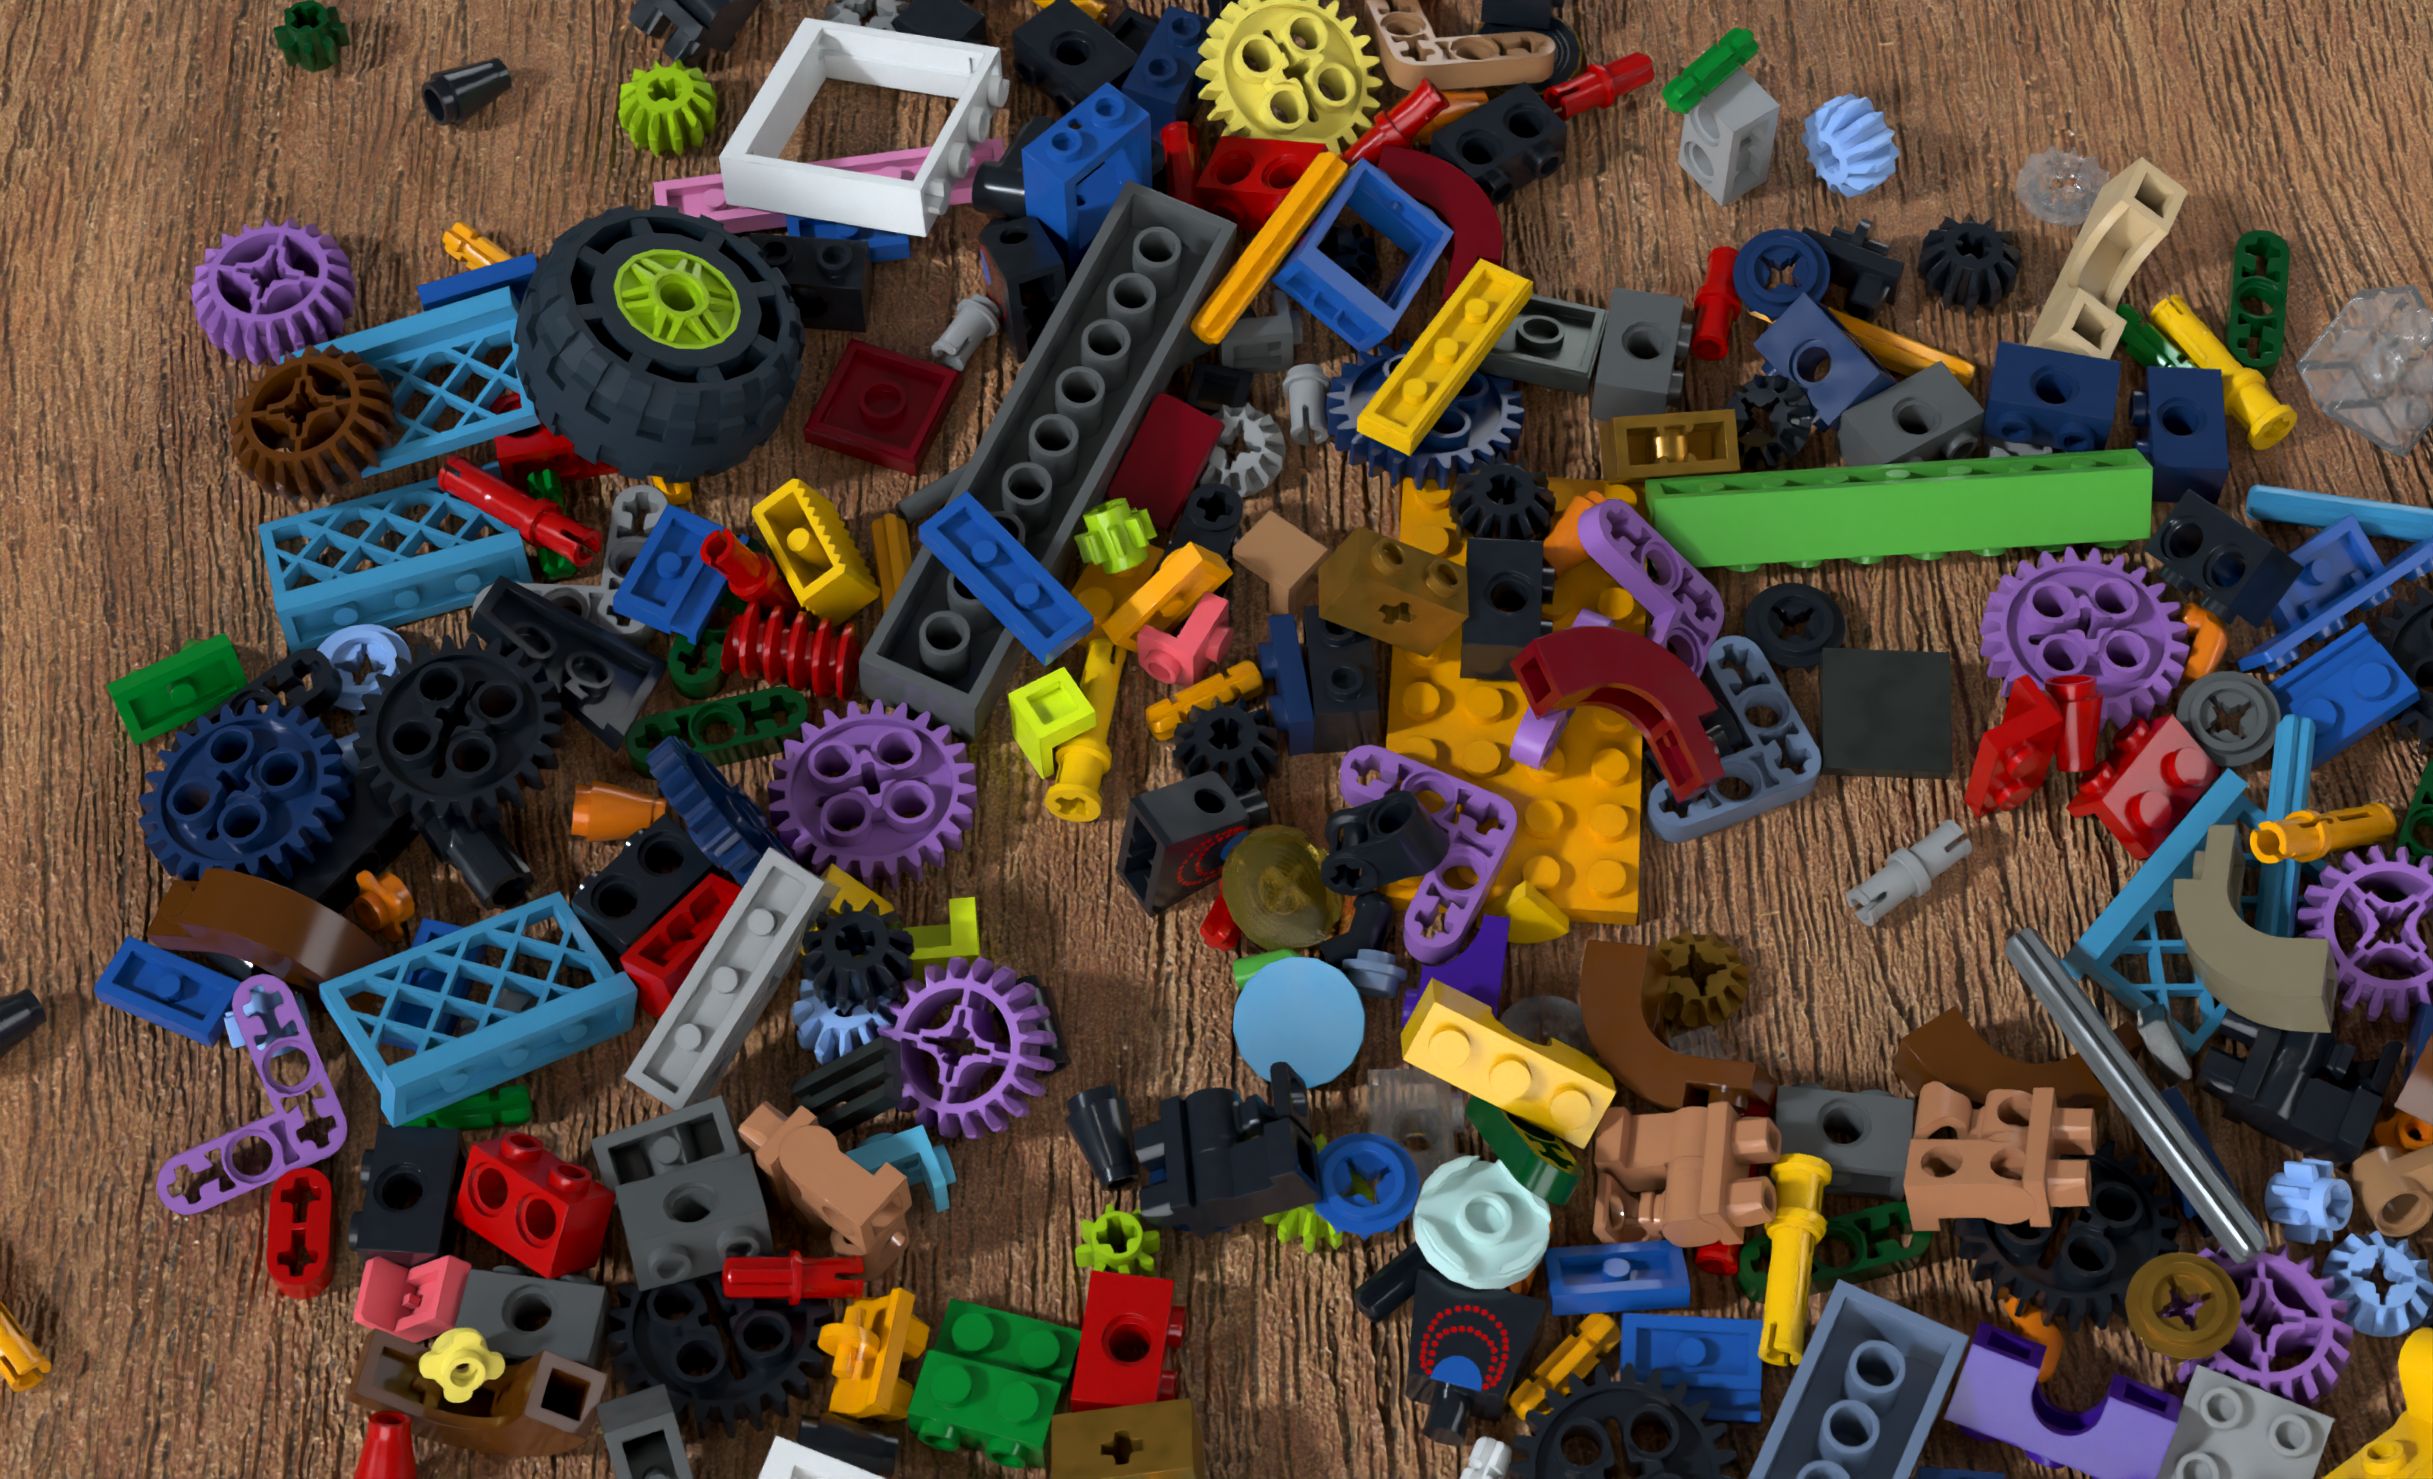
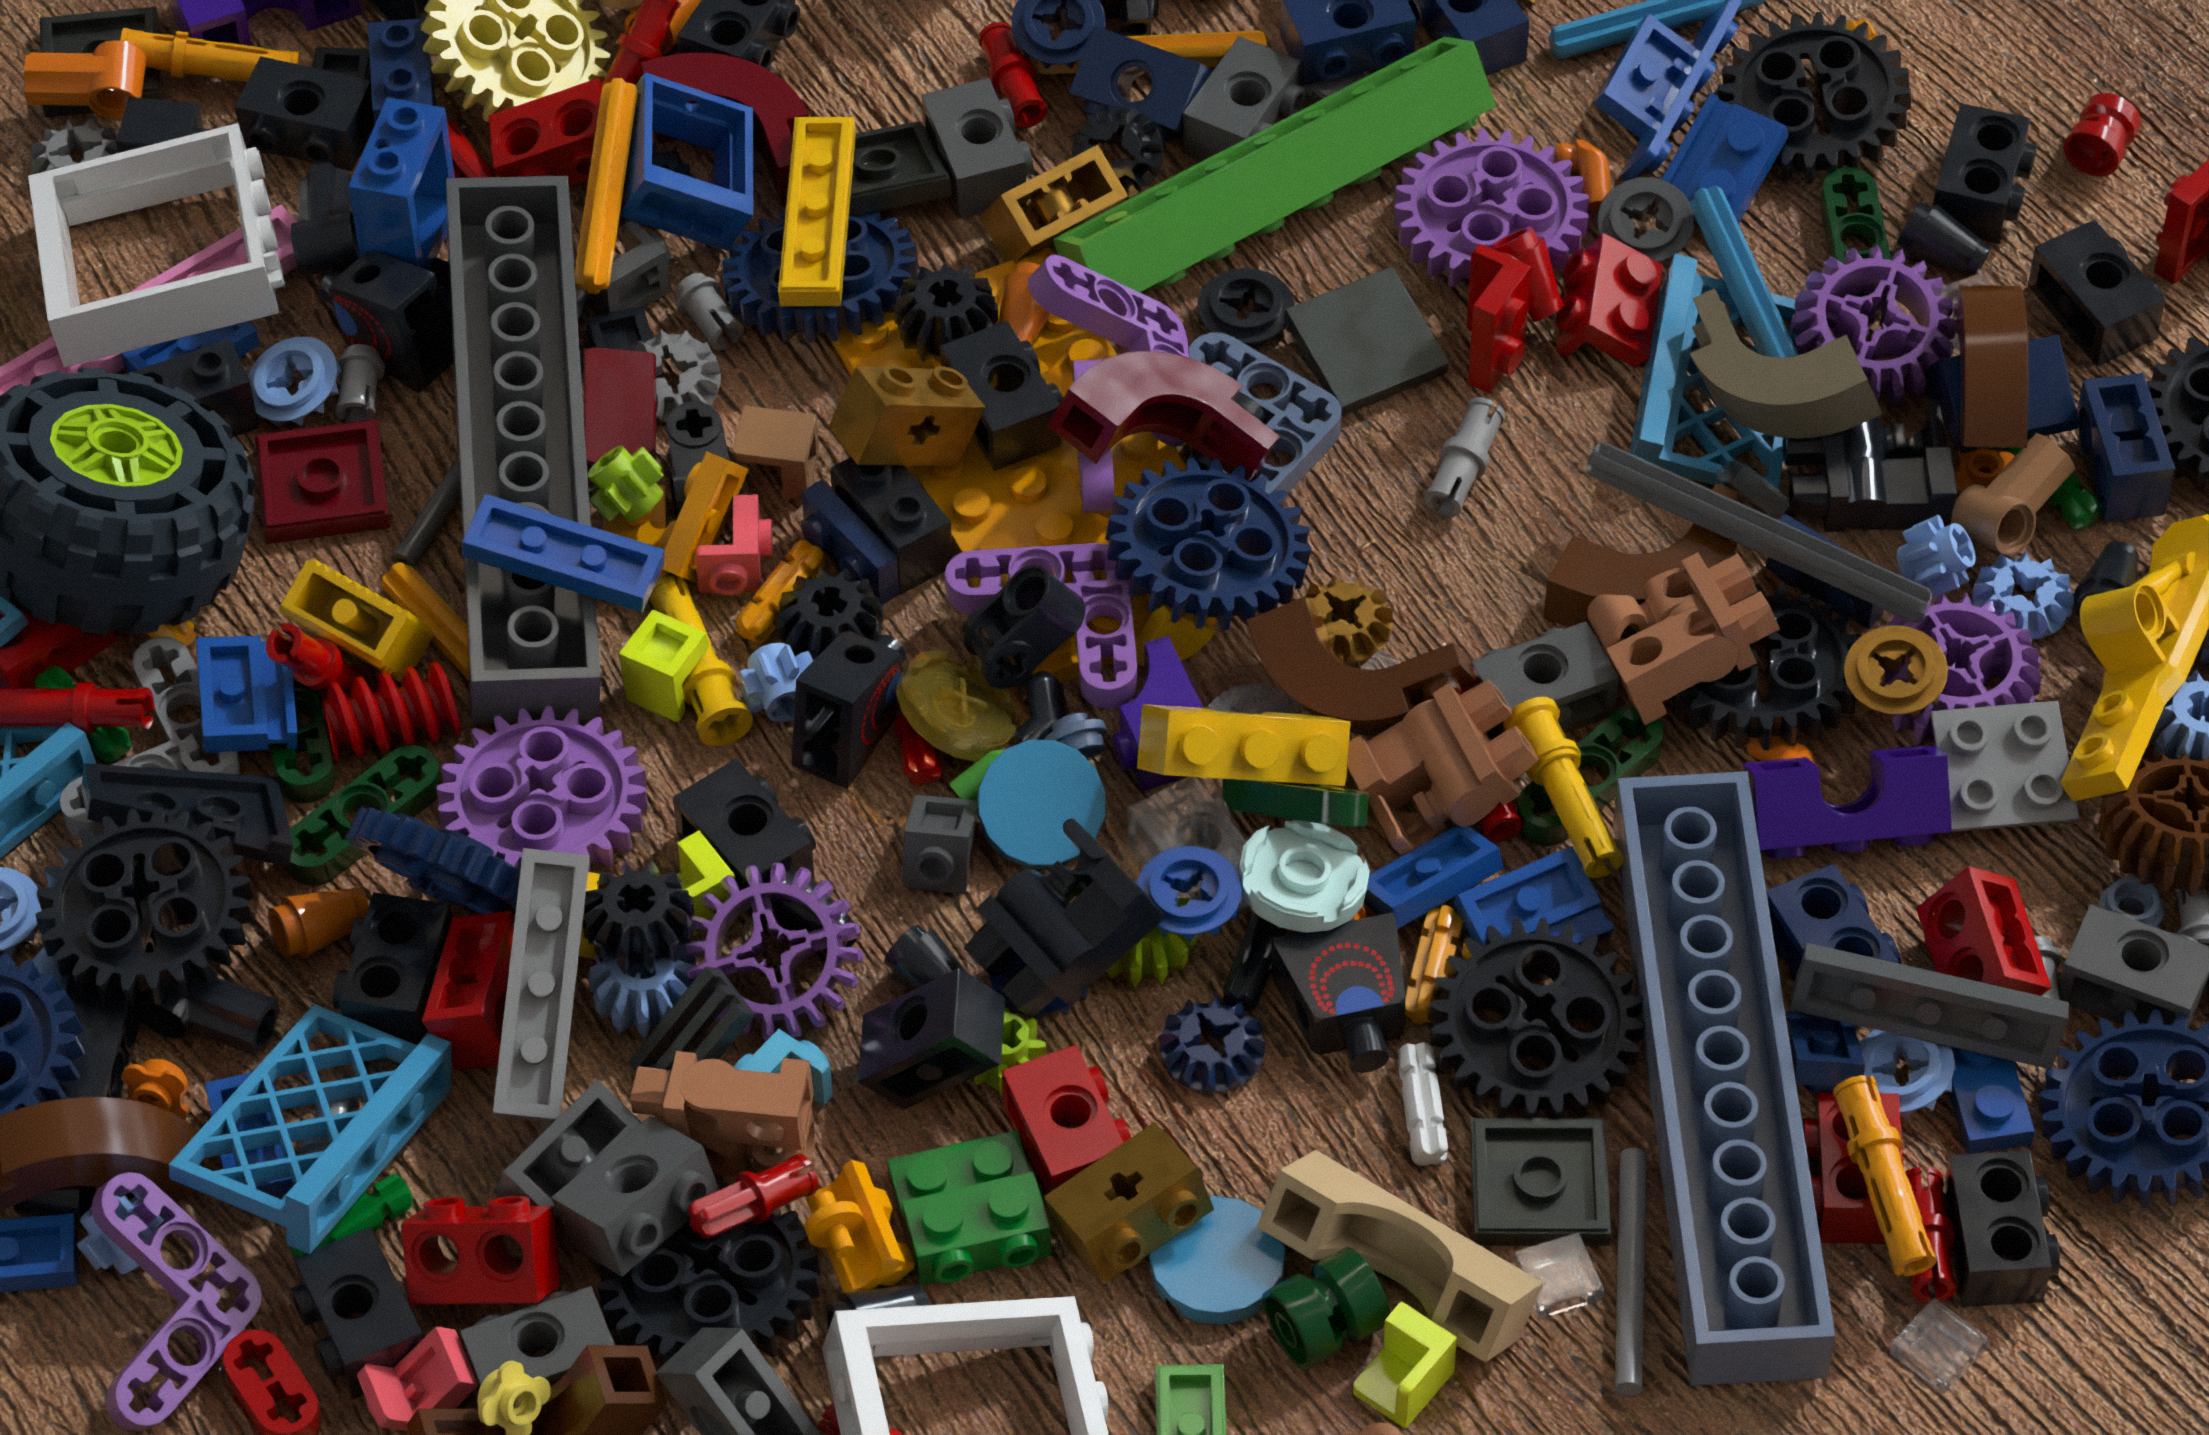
camera: 30 degrees left, 5 degrees down
(904, 289) = (275, 372): none -> light blue gear
(1018, 885) = (738, 804): none -> black brick
(1049, 1205) = (931, 1039): none -> black brick
(1141, 773) = (772, 680): none -> light blue gear
(1188, 1011) = (939, 843): none -> dark grey bracket
(1337, 1359) = (1202, 1066): none -> dark blue gear
(1600, 846) = (1207, 543): none -> dark blue gear
(2213, 552) = (1570, 85): black brick -> none
(2310, 835) = (1774, 272): light orange pin -> none

